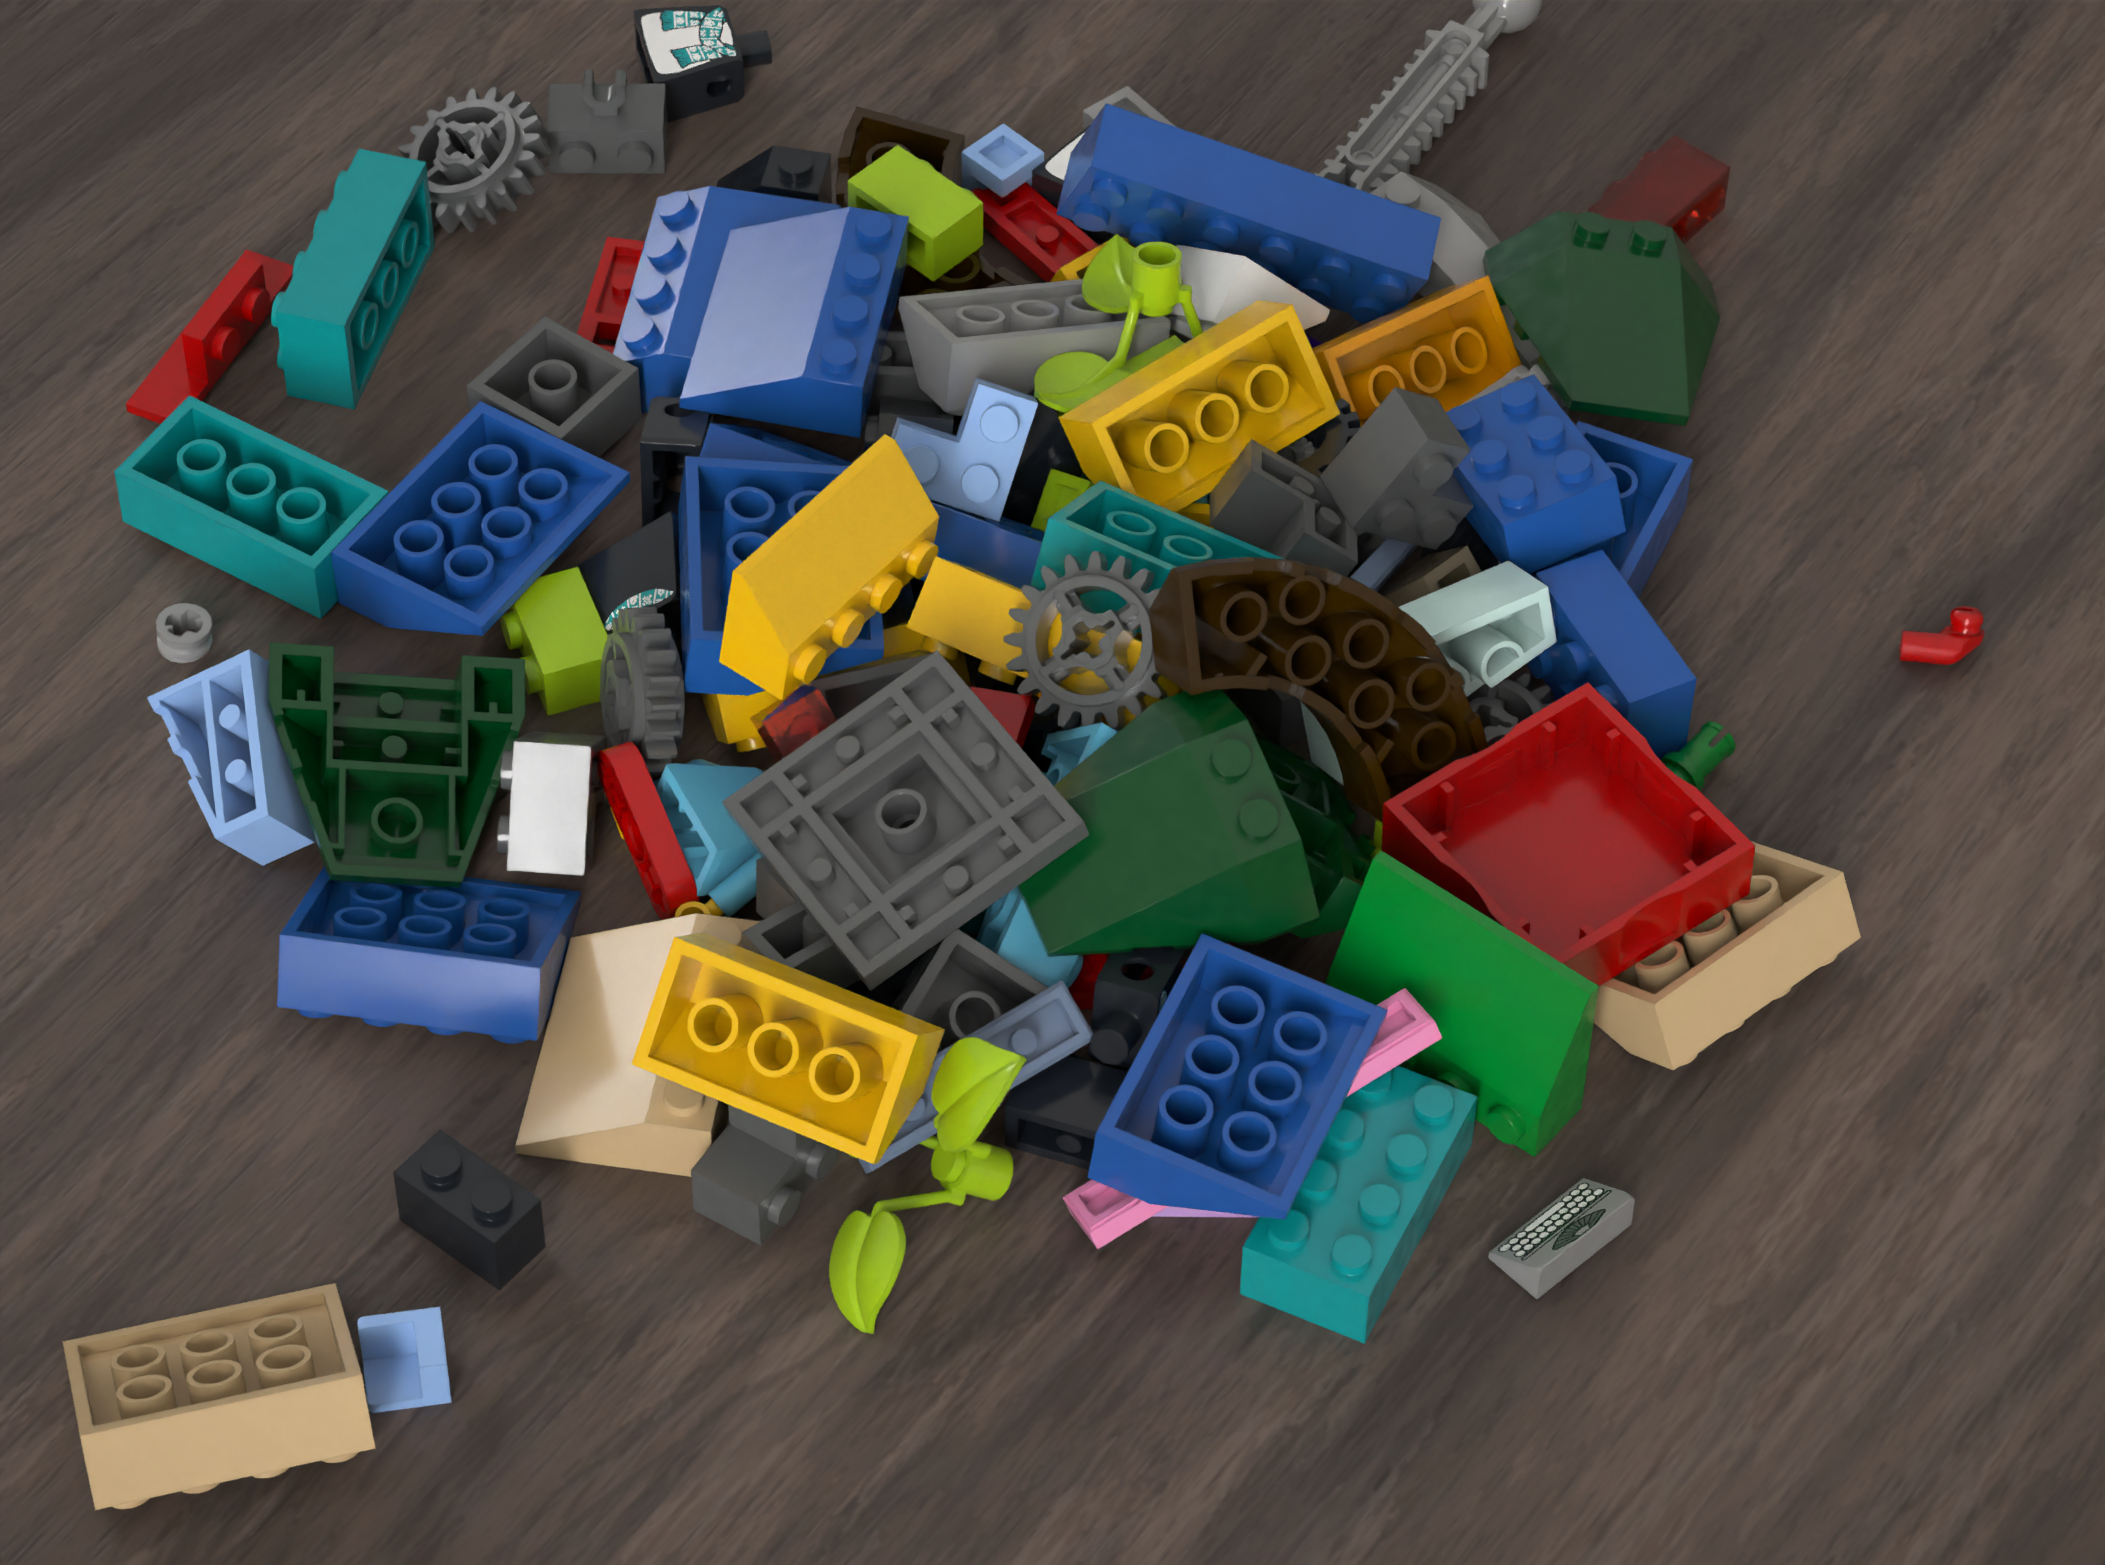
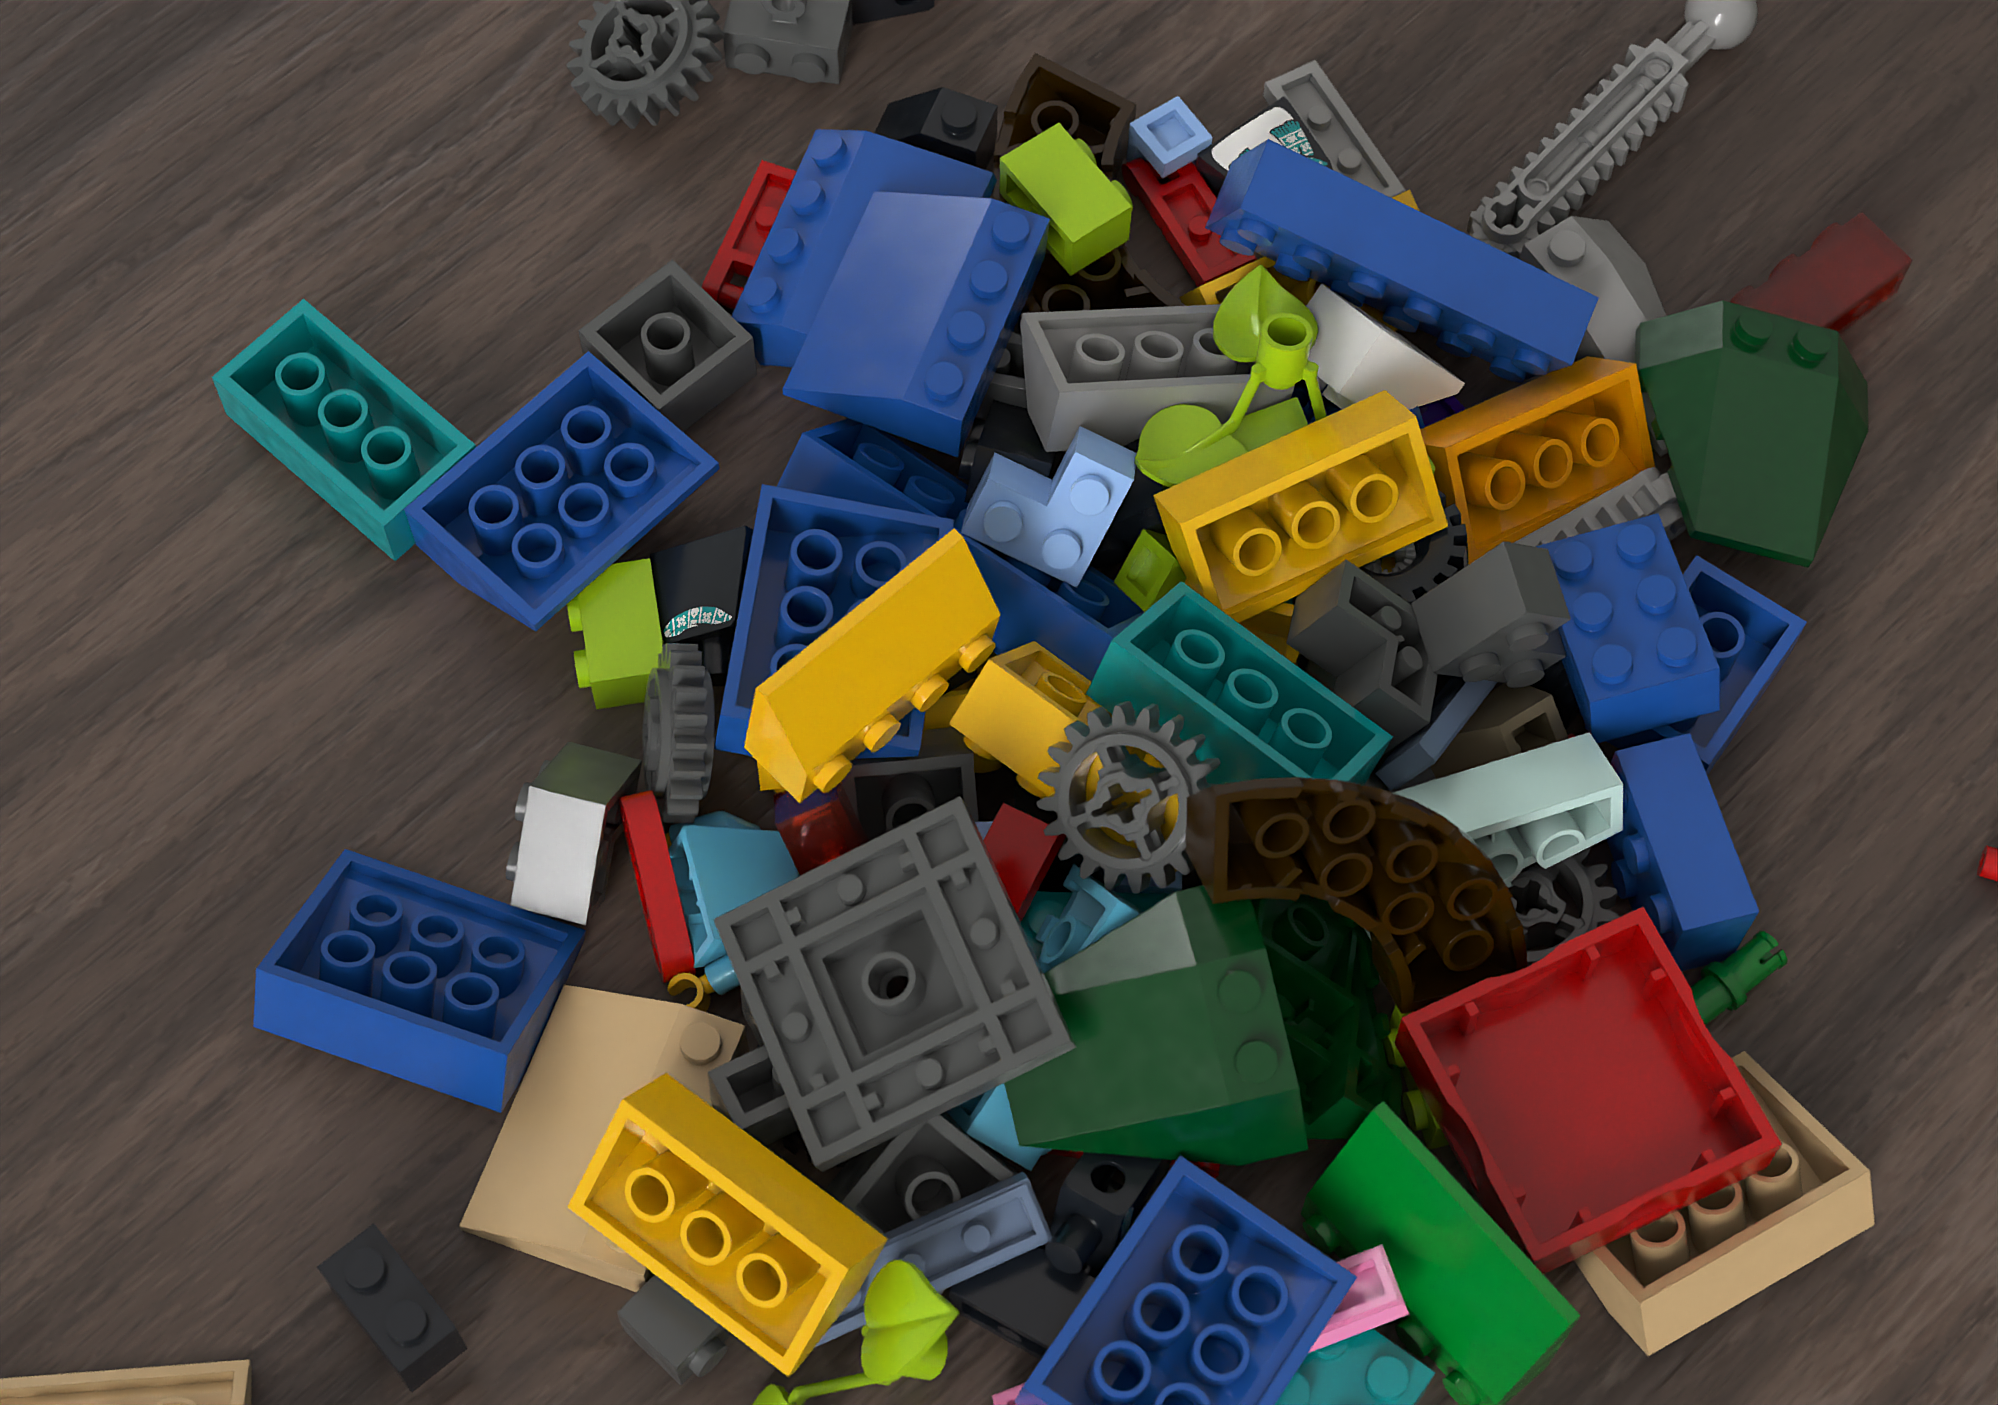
camera: 10 degrees right, 15 degrees up
(191, 644) = (257, 539): light grey bush -> none
(212, 336) = (355, 214): red bracket -> none
(236, 758) = (276, 729): light blue wedge -> none
(354, 278) = (499, 176): teal brick -> none
(394, 763) = (421, 760): dark green wedge -> none
(665, 441) = (766, 425): black torso -> none

